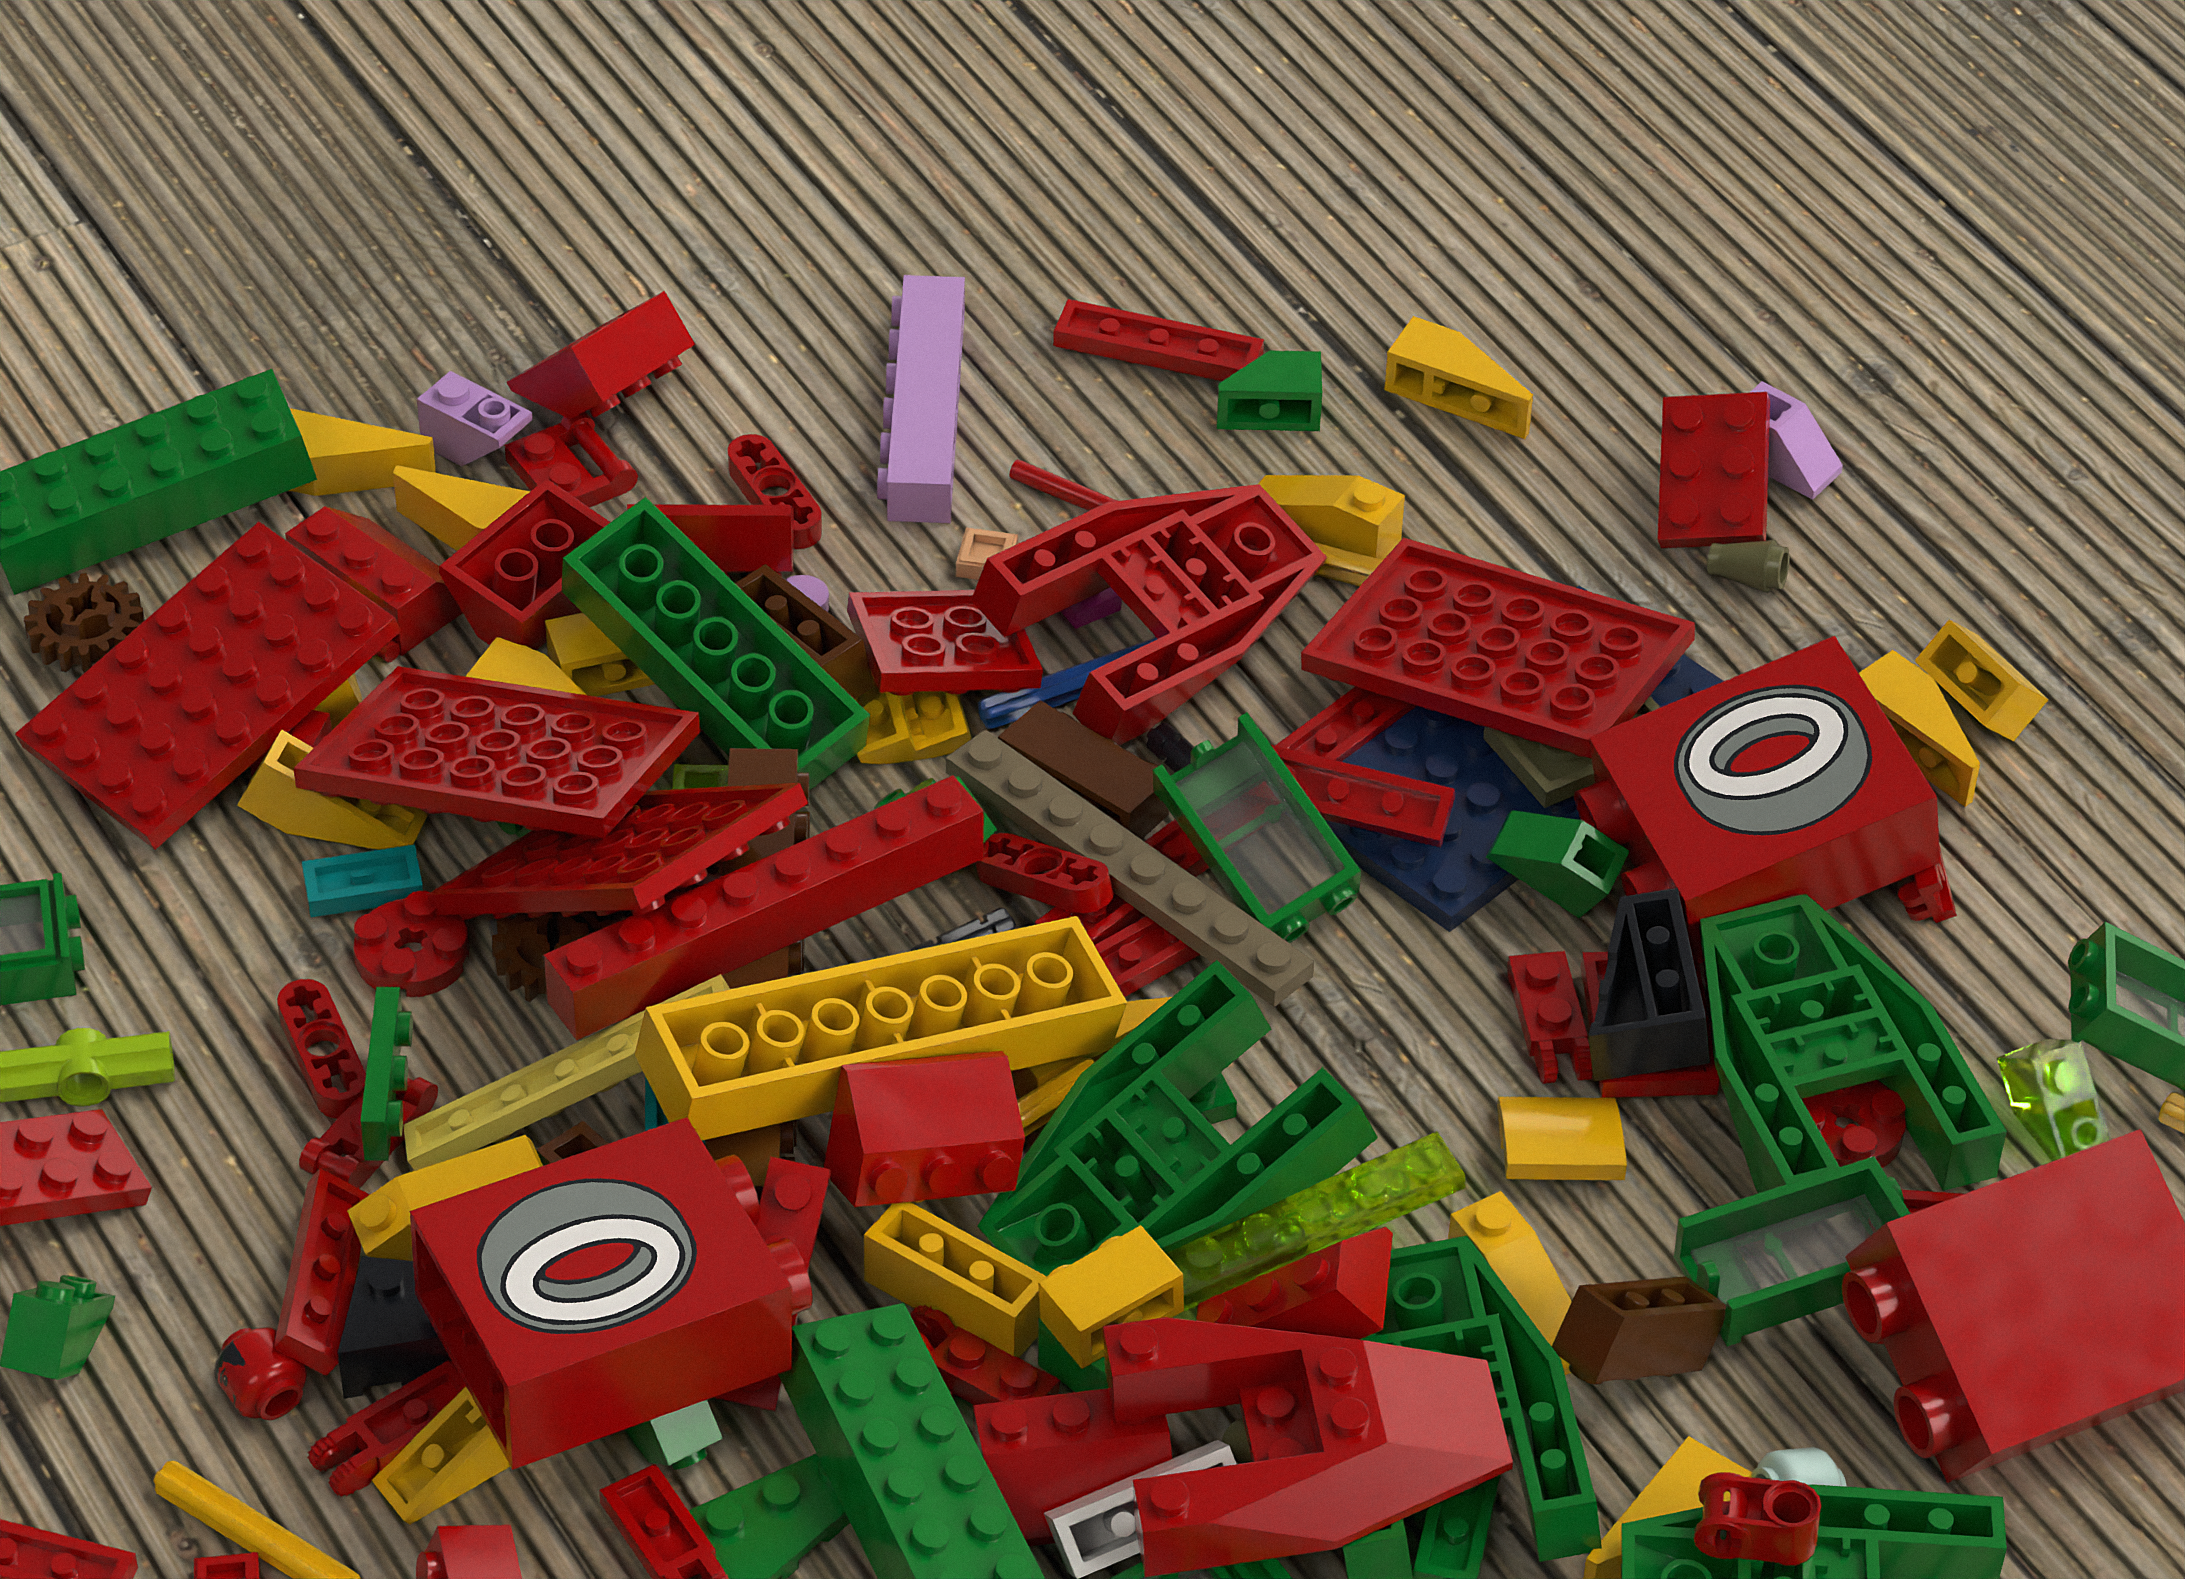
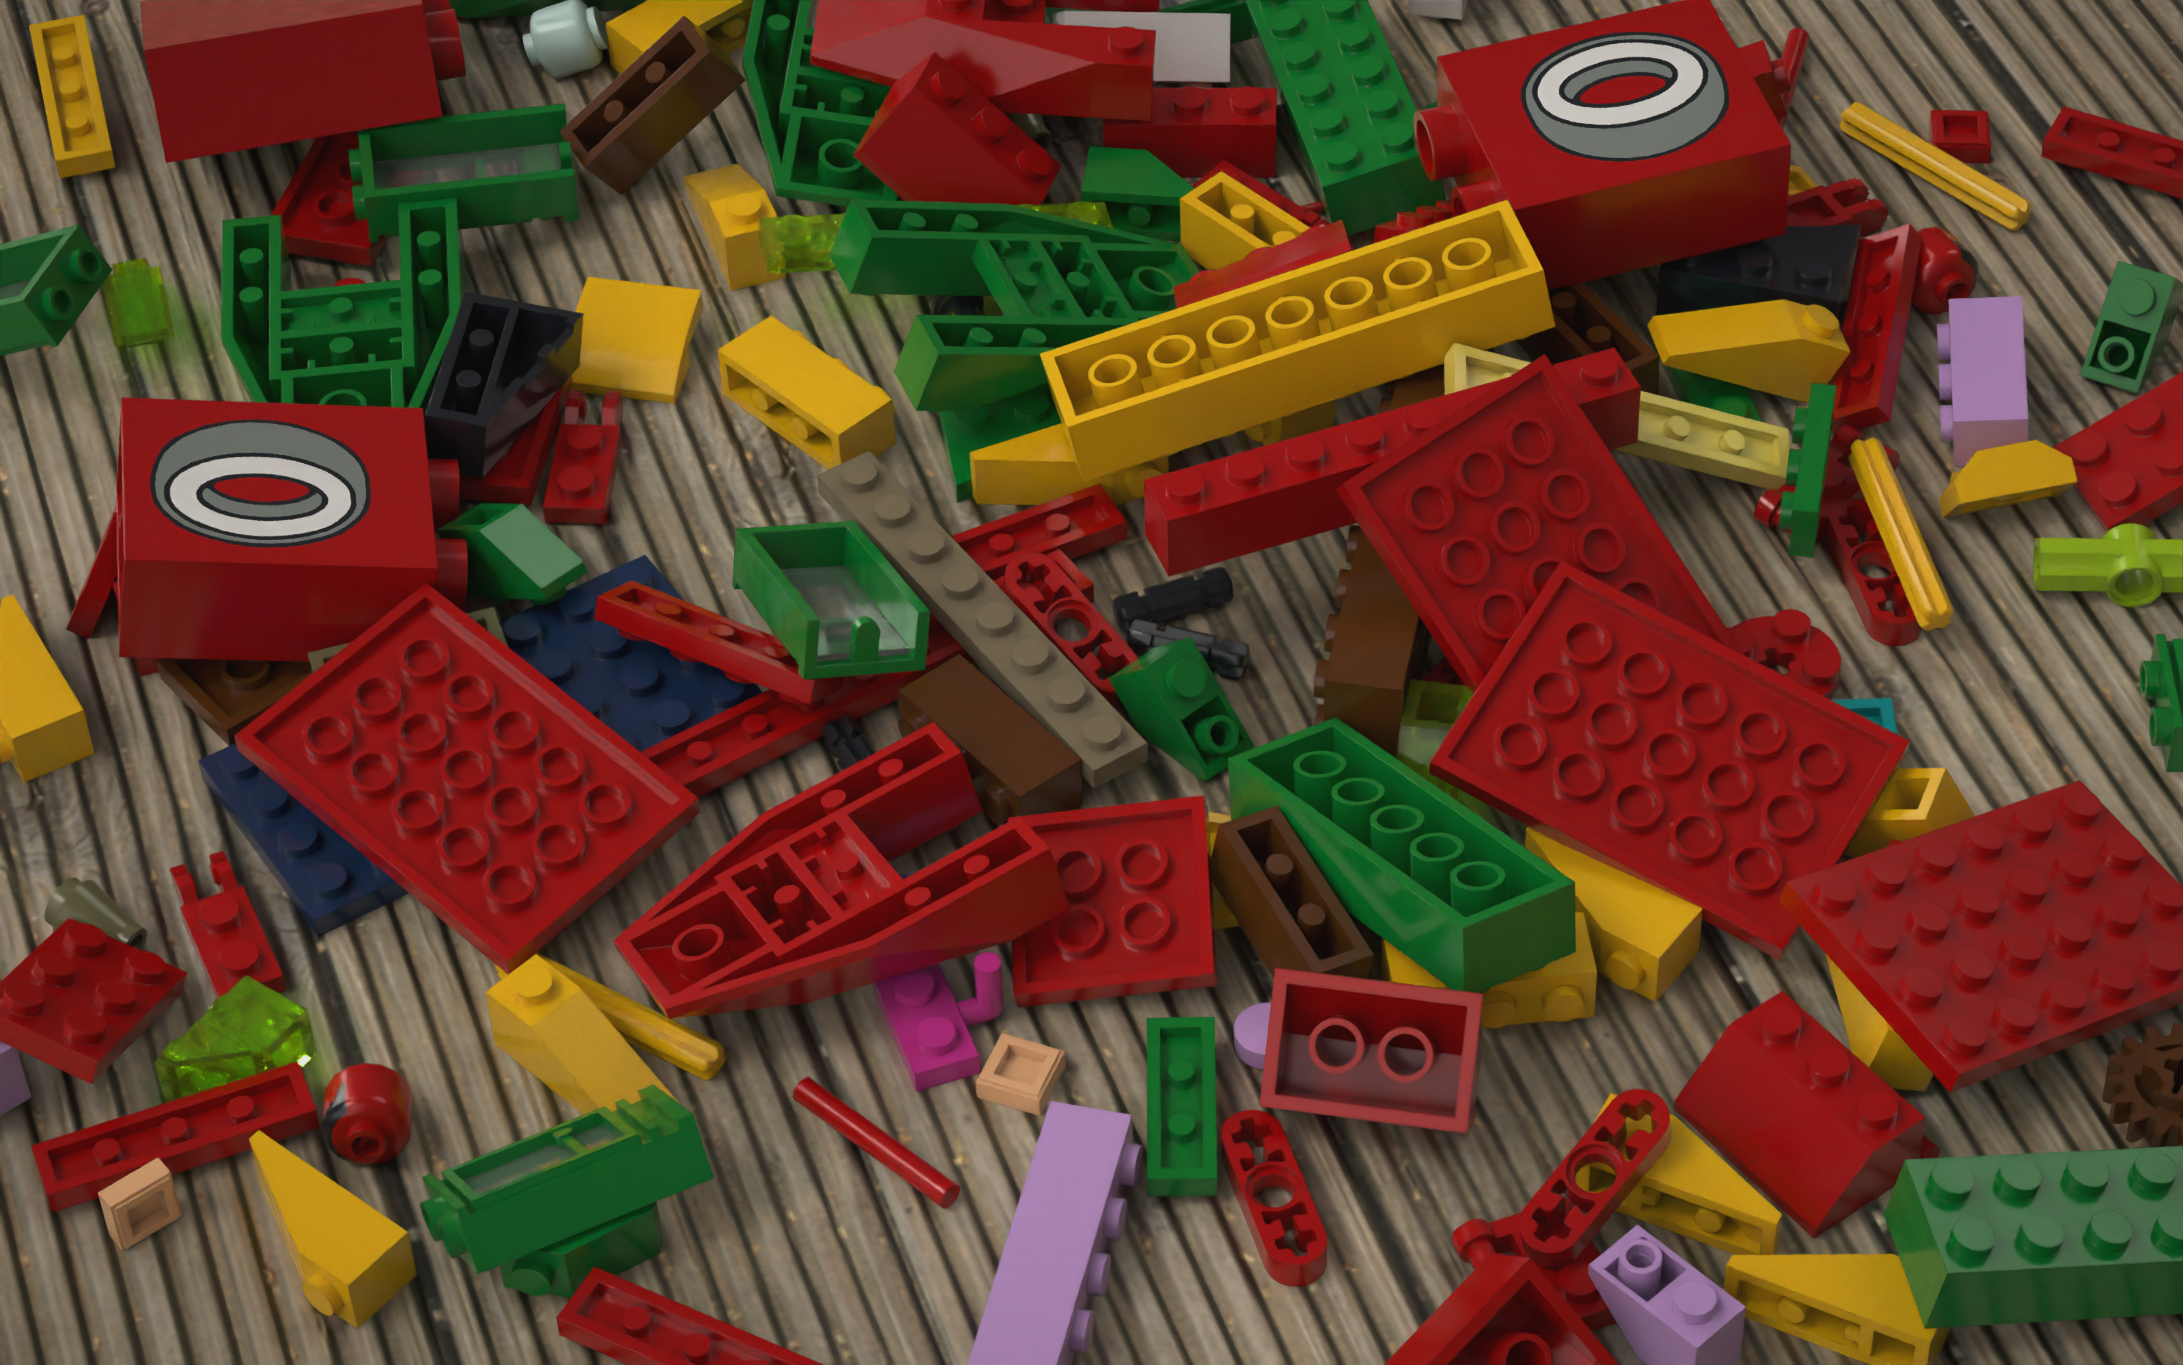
camera: 165 degrees left, 0 degrees up
(200, 1139) = (2007, 477): none -> yellow slope
(213, 1240) = (1983, 375): none -> lavender brick
(300, 1044) = (1901, 534): none -> yellow axle
(512, 569) = (1593, 1037): red slope -> none
(549, 455) = (1580, 1228): none -> red beam
(856, 532) = (1181, 1107): none -> green plate
(945, 900) = (1229, 657): none -> black axle
(1115, 1284) = (1127, 165): yellow brick -> none
(1294, 395) = (565, 1180): none -> green door
(1393, 1089) = (806, 394): none -> yellow brick
(1463, 451) = (367, 1108): none -> red head
(1584, 483) = (236, 1038): none -> clear neon green slope
(1591, 431) = (177, 1132): none -> red plate
(1597, 378) = (140, 1204): none -> light nougat tile
(1644, 575) = (226, 930): none -> red hinge

